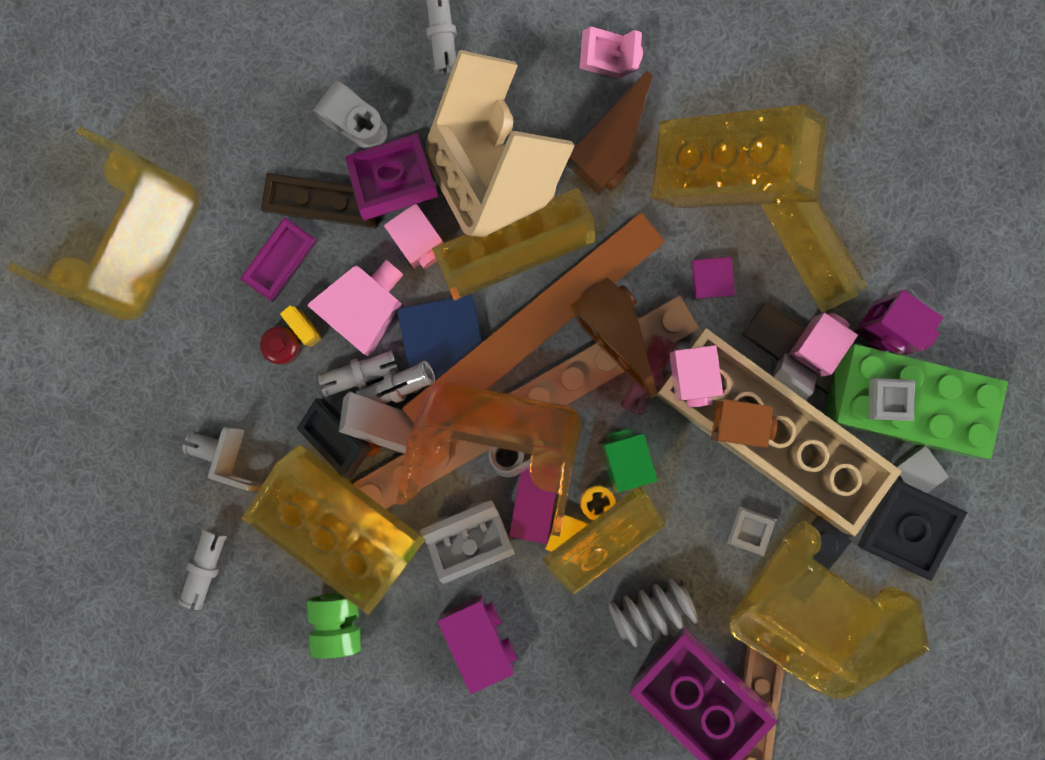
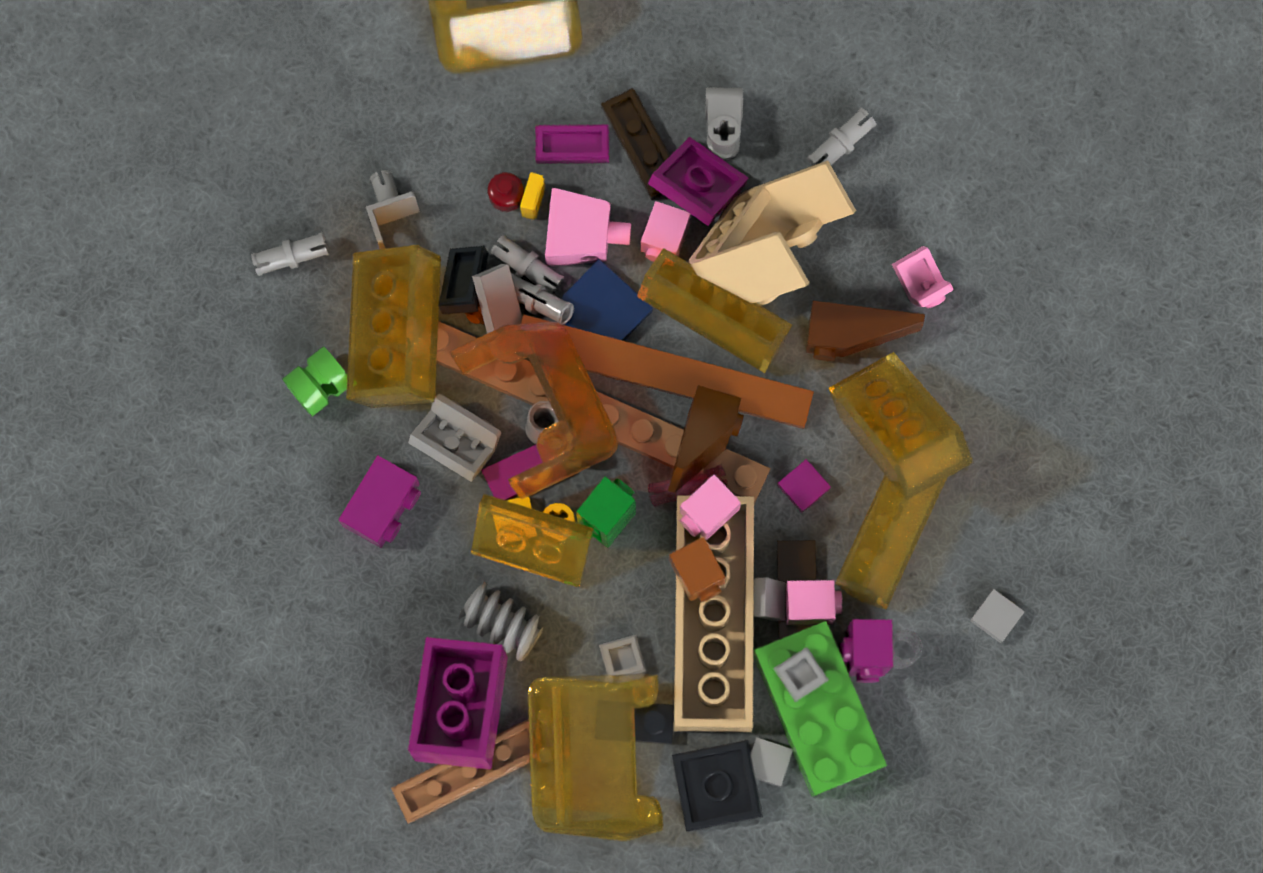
camera: 55 degrees right, 10 degrees down
(931, 200) = (997, 616): none -> light grey tile

